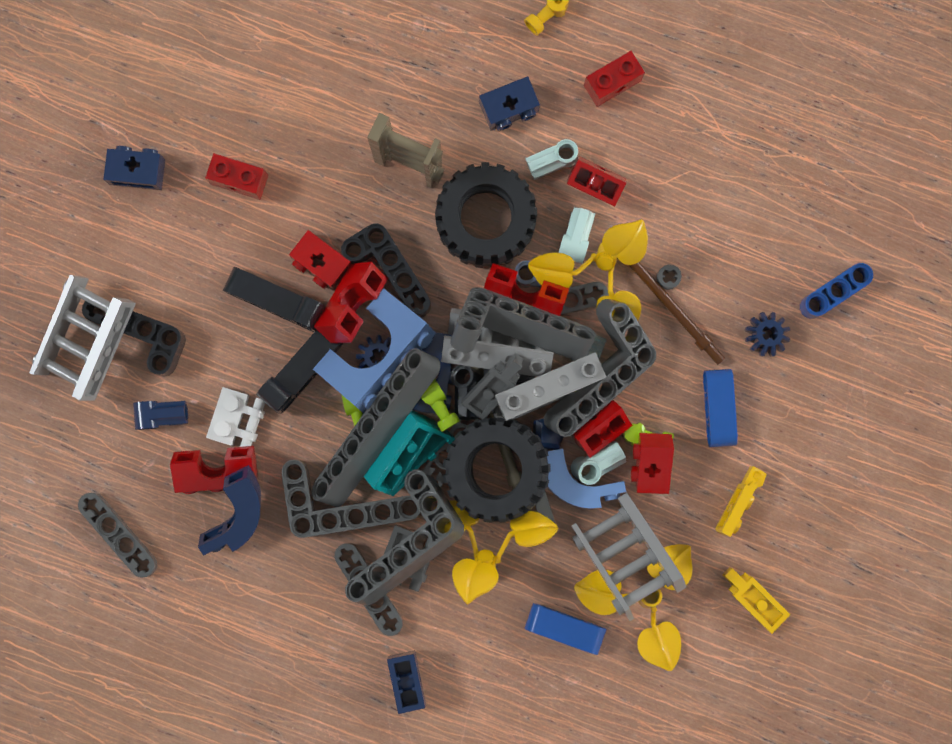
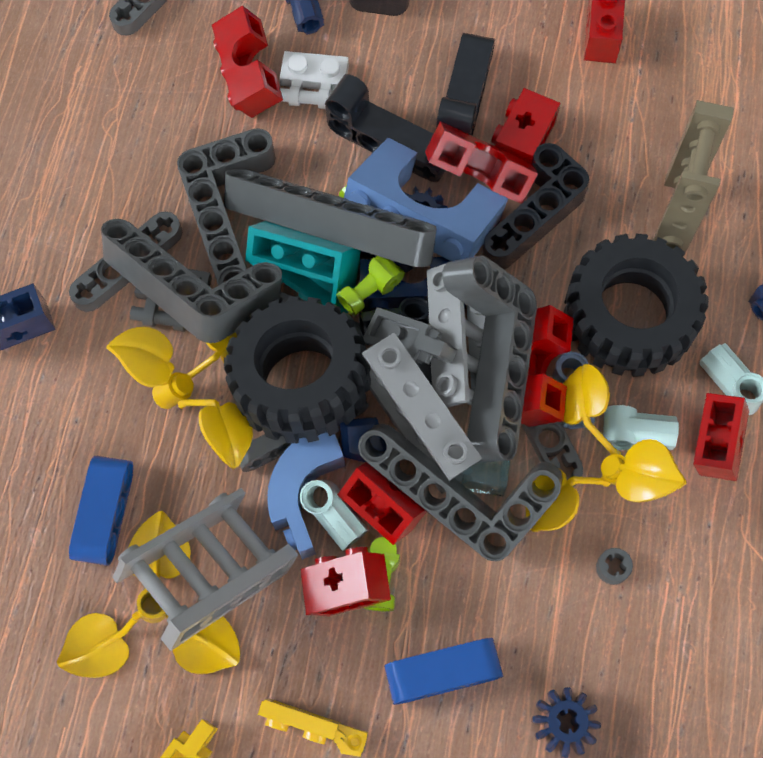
camera: 85 degrees right, 15 degrees down
(245, 496) = (203, 99): dark blue arch -> none
(703, 341) = (535, 630): reddish brown bar -> none

